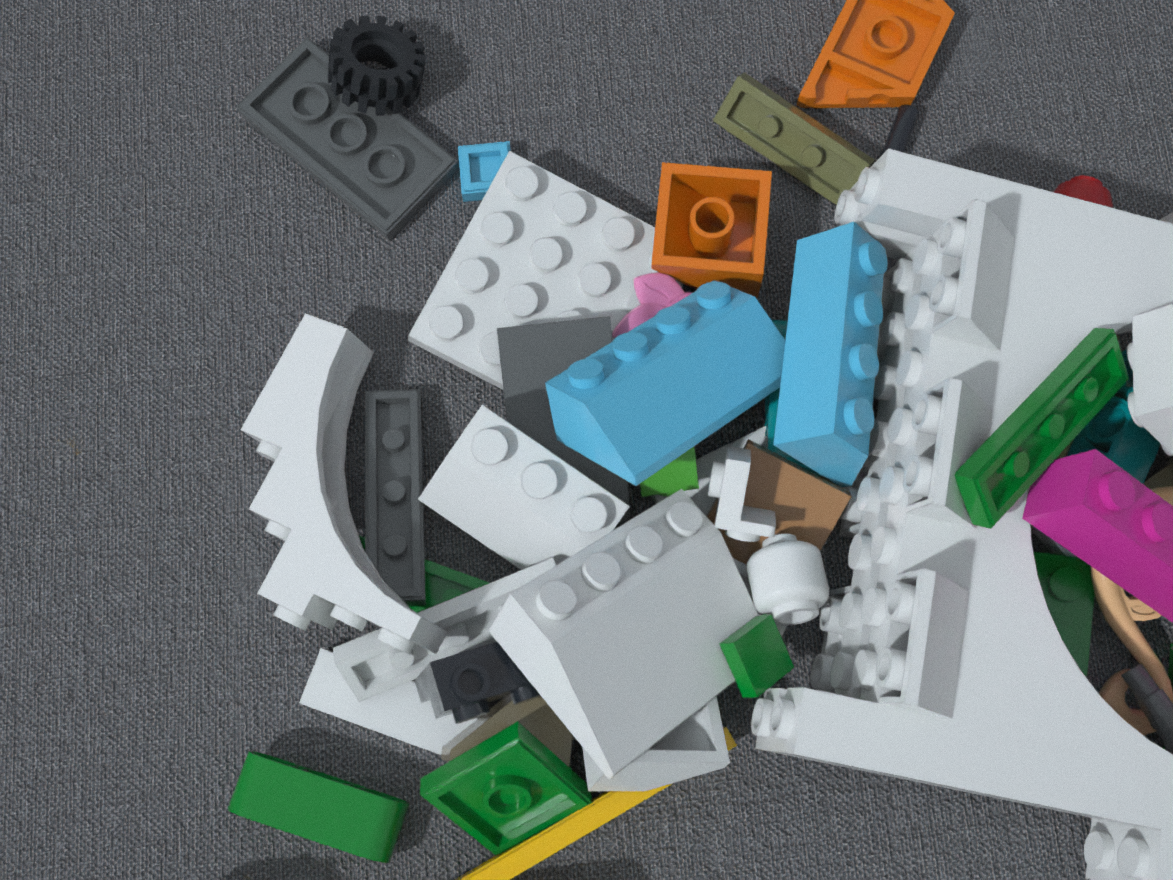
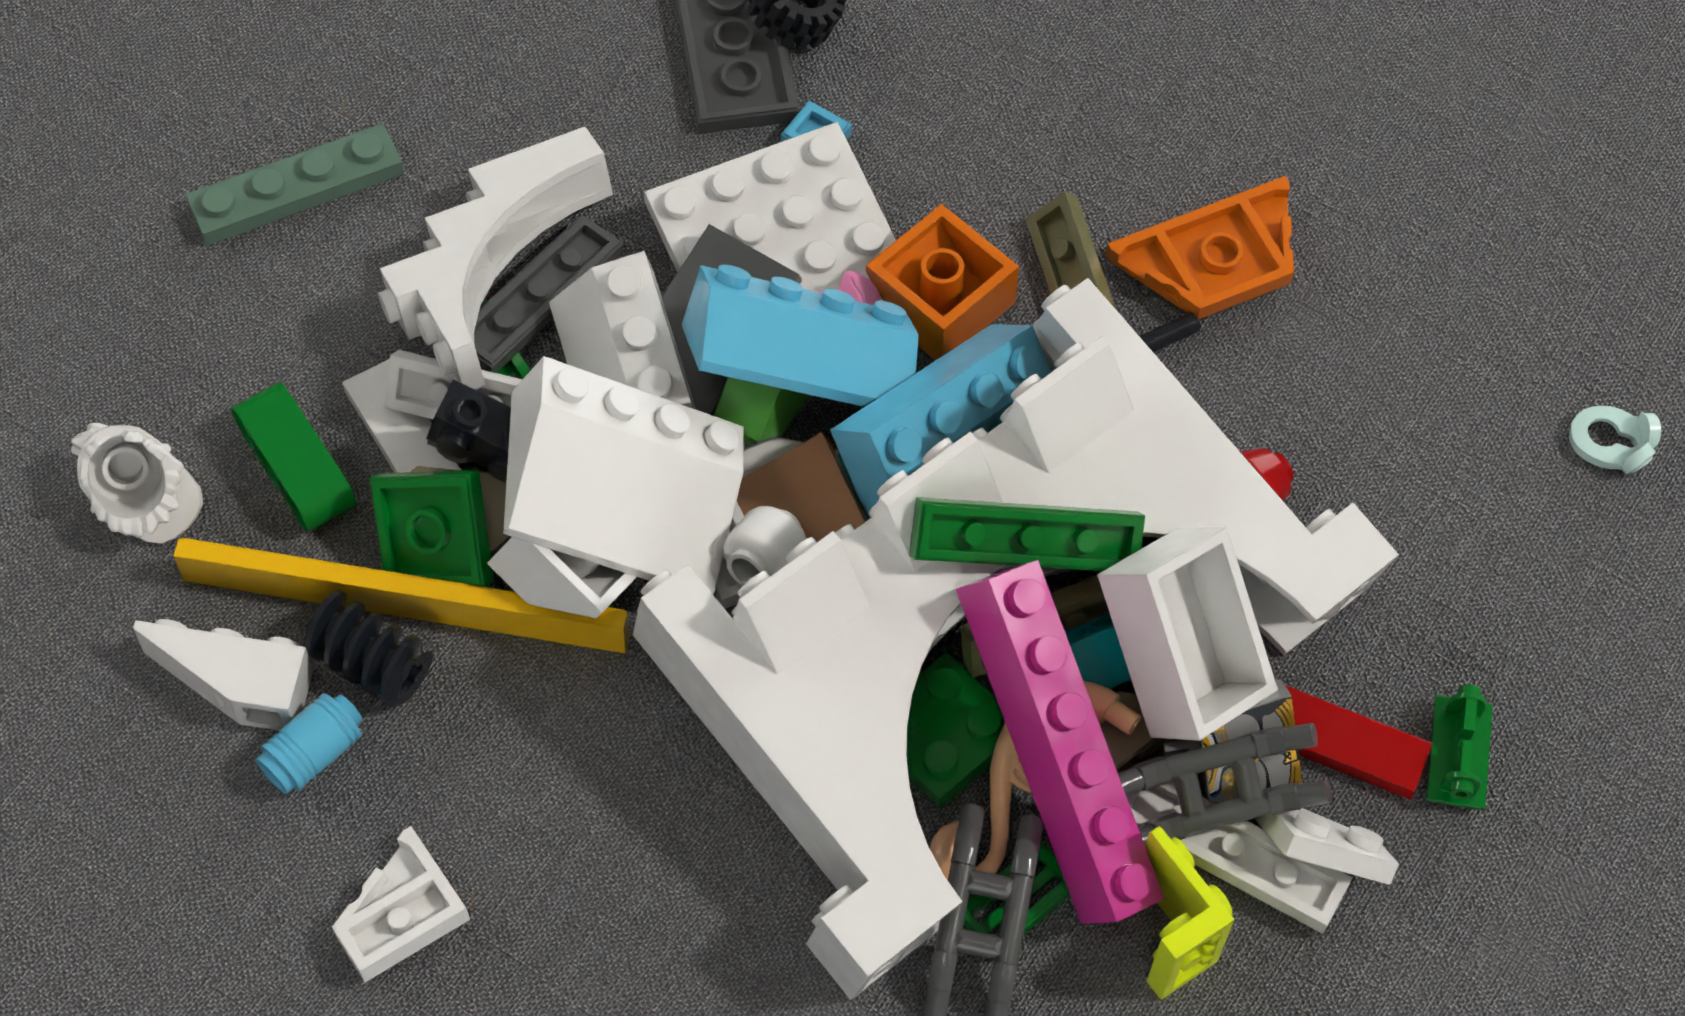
camera: 35 degrees right, 15 degrees down
(93, 552) = (294, 184): none -> sand green plate
(729, 485) = (774, 454): white bracket -> none
(757, 656) = (704, 560): green tile -> none

